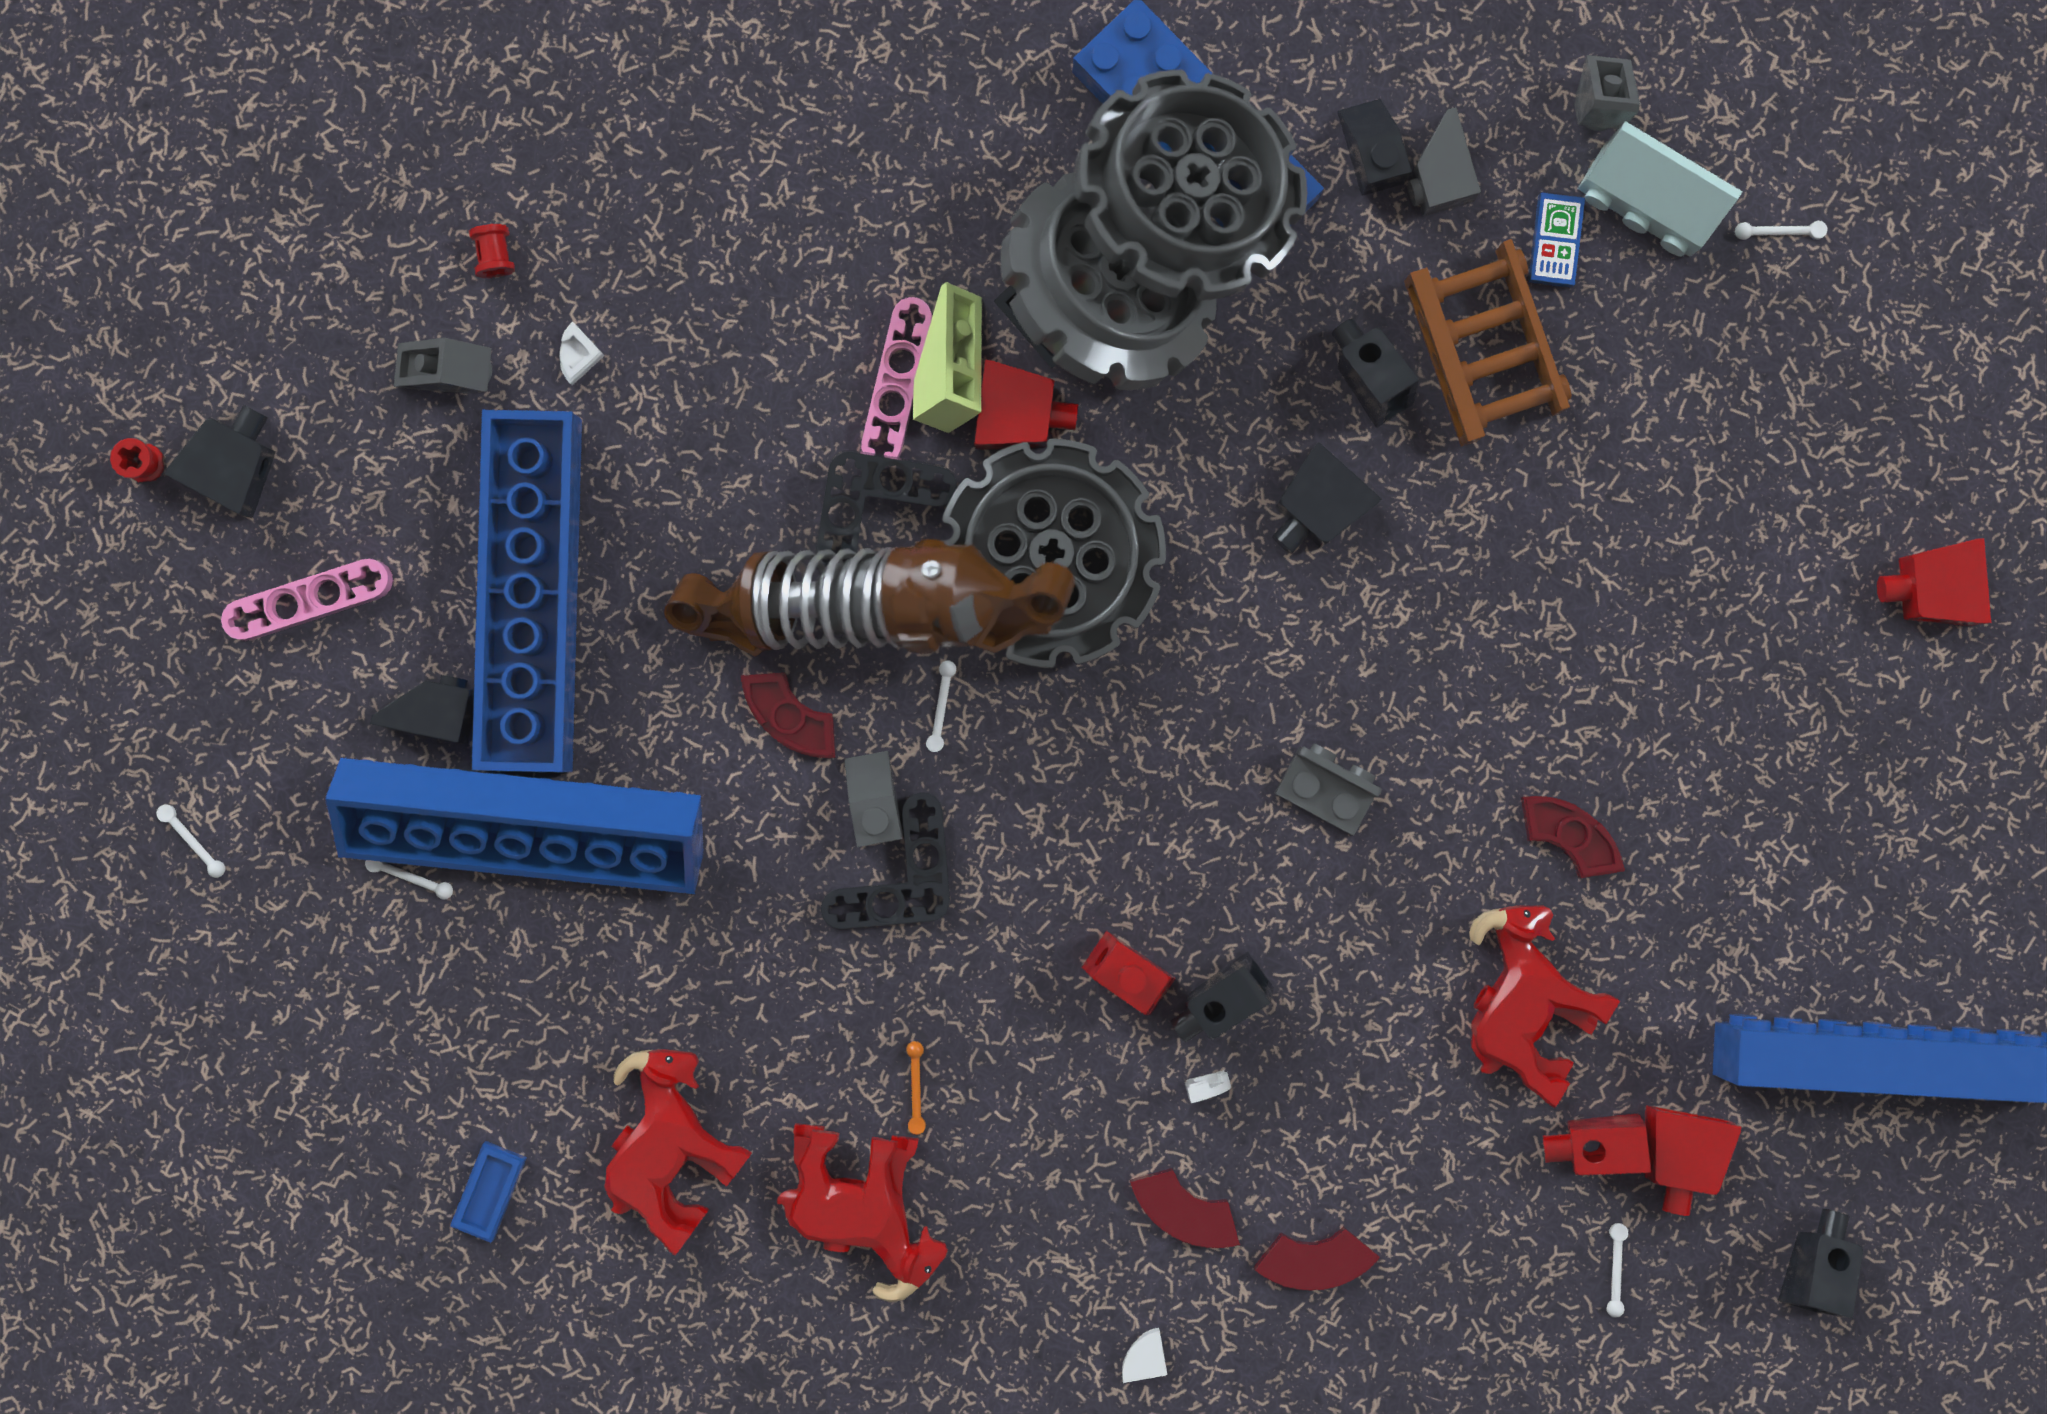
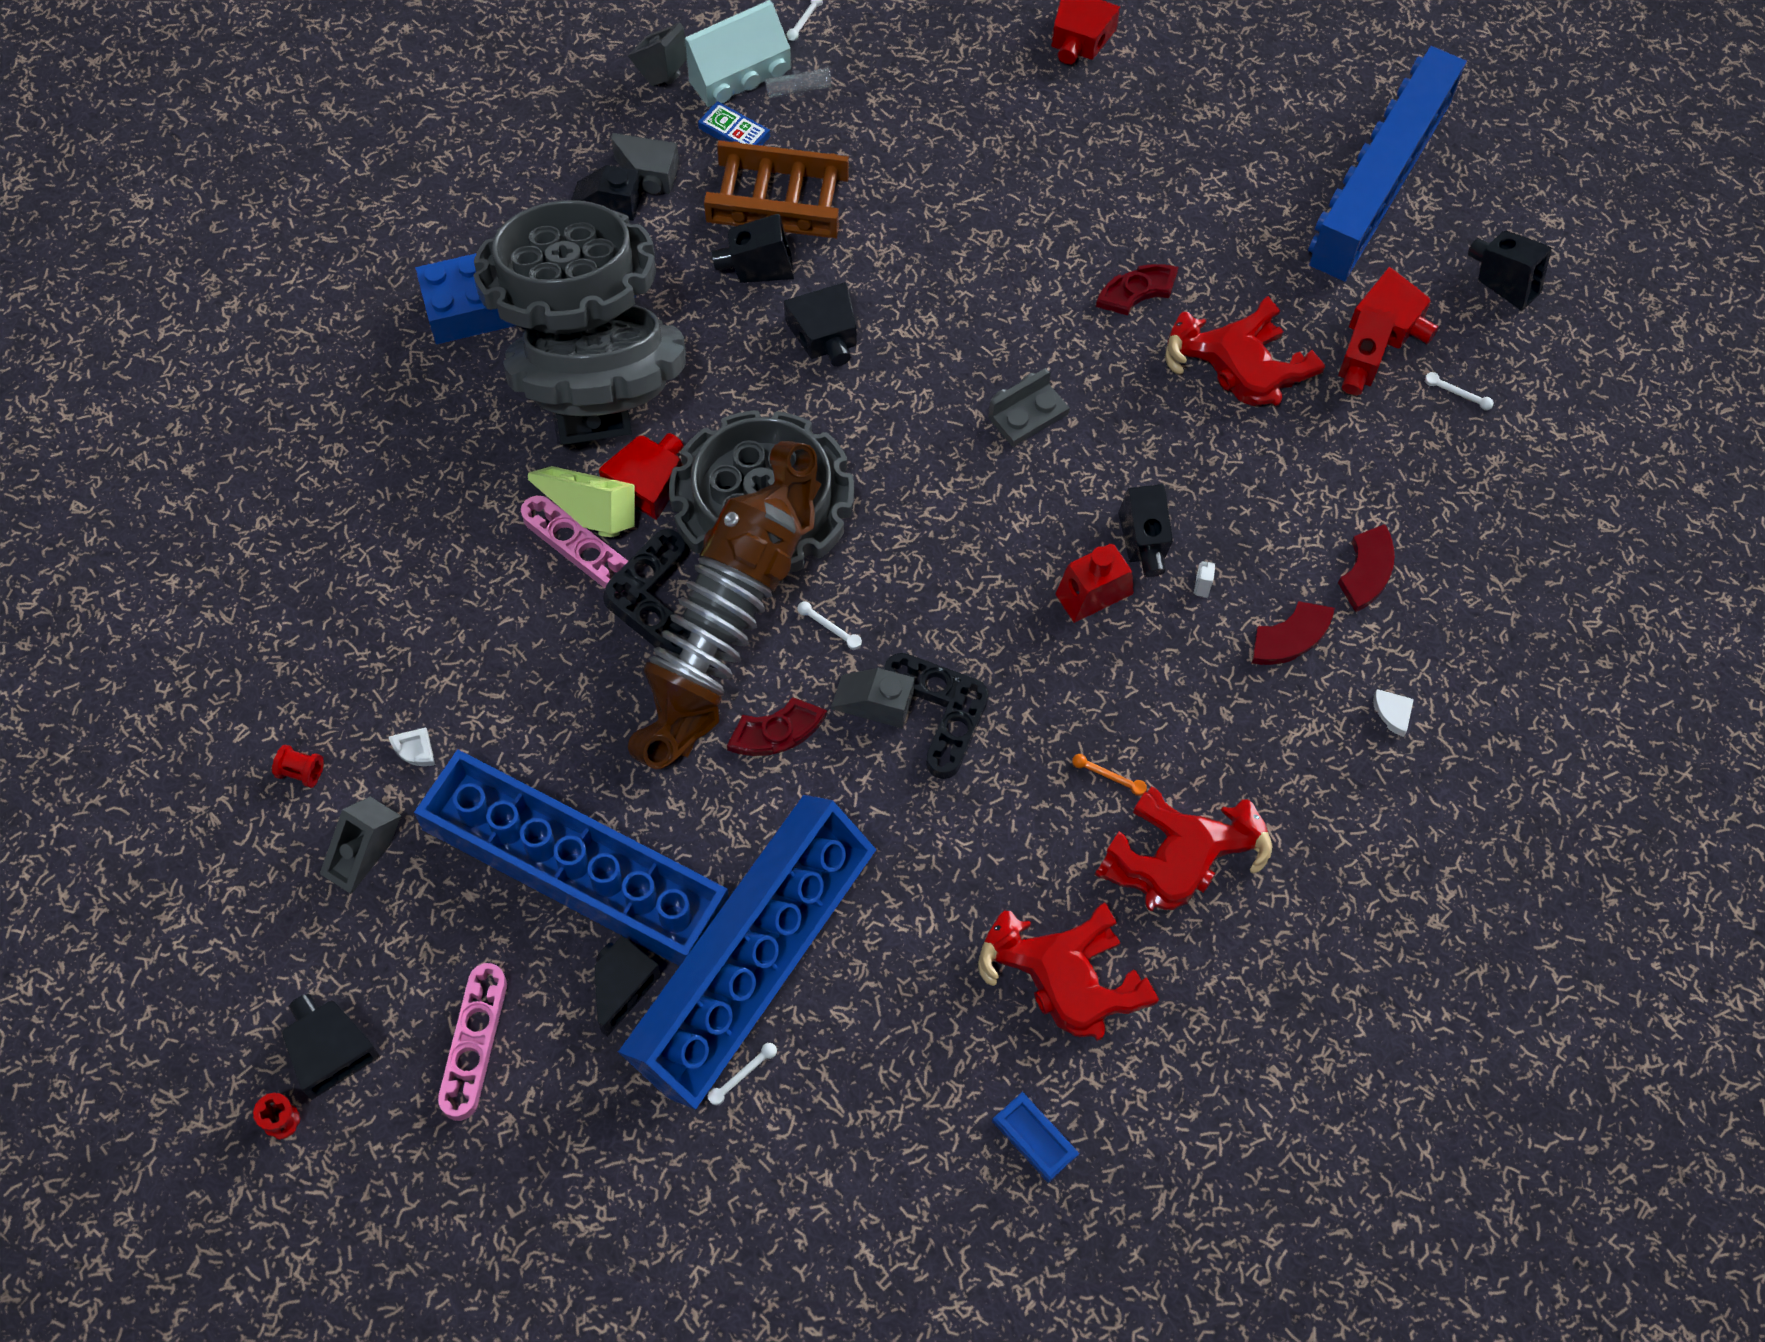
camera: 65 degrees left, 25 degrees down
(167, 813) = (578, 1250): white hinge -> none
(1665, 280) = (798, 83): none -> clear pin

